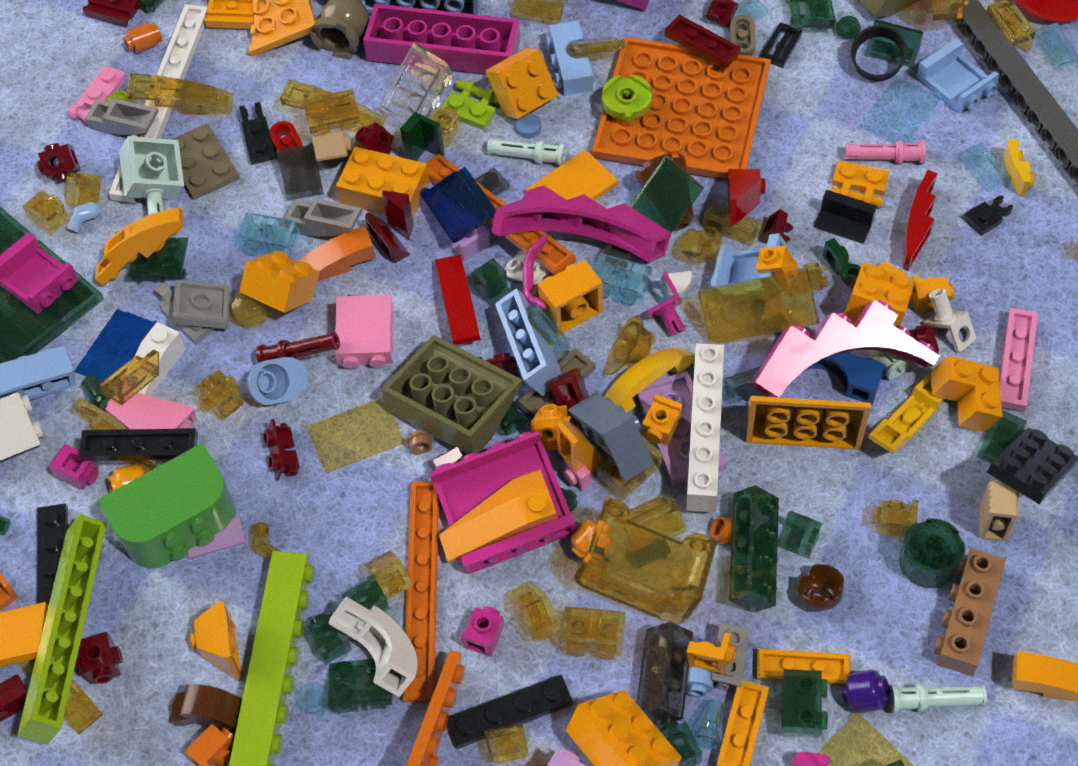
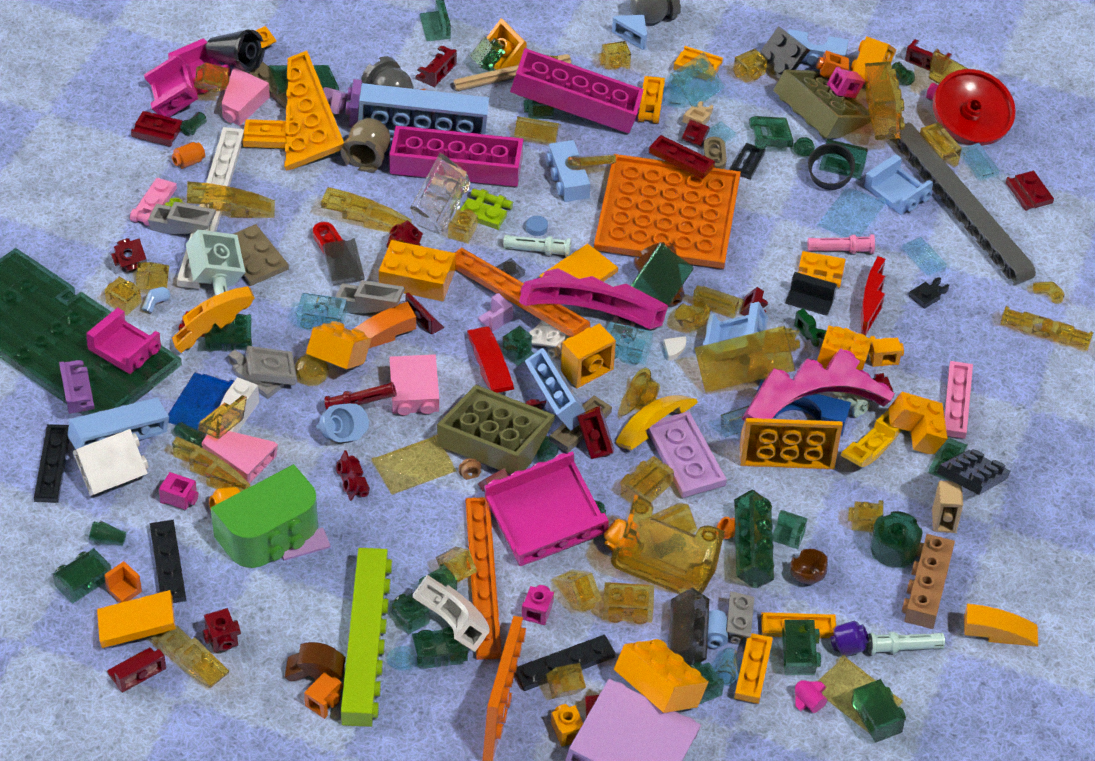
camera: 10 degrees left, 10 degrees down
(62, 631) = (192, 605): lime brick -> none
(136, 444) = (233, 468): black plate -> none
(217, 639) = (319, 614): light orange slope -> none
(220, 394) = (297, 434): clear yellow brick -> none
(257, 136) = (300, 234): black hinge -> none
(261, 541) = (344, 546): clear yellow arm -> none
(331, 112) = (368, 212): clear yellow brick -> none
(331, 146) = (371, 239): tan brick -> none
(398, 212) = (434, 291): dark red slope -> none
(421, 134) = (448, 231): dark green panel -> none
(458, 204) = (485, 285): clear blue piece -> none
(507, 512) = (552, 513): light orange wedge -> none
(522, 83) = (530, 189): light orange brick -> none
(528, 273) = (550, 336): dark pink animal -> none
(545, 423) = (584, 451): light orange brick -> none
(548, 330) = (571, 380): clear light blue tile -> none
(576, 447) = (604, 467): light orange slope -> none
(581, 478) = (604, 487): bright pink plate -> none
(614, 433) = (634, 452): sand blue wedge -> none
(626, 109) = (621, 210): lime plate -> none
(661, 420) = (672, 445): light orange brick -> none
(667, 310) = (668, 364): dark pink bracket -> none
(705, 428) = (708, 450): white brick -> none
(712, 658) = (726, 611): light orange bracket -> none
(743, 192) = (725, 274): red slope -> none
(775, 260) = (757, 321): light orange bracket -> none
(951, 319) = (902, 369): white bracket -> none
(1017, 168) = (951, 255): yellow slope -> none

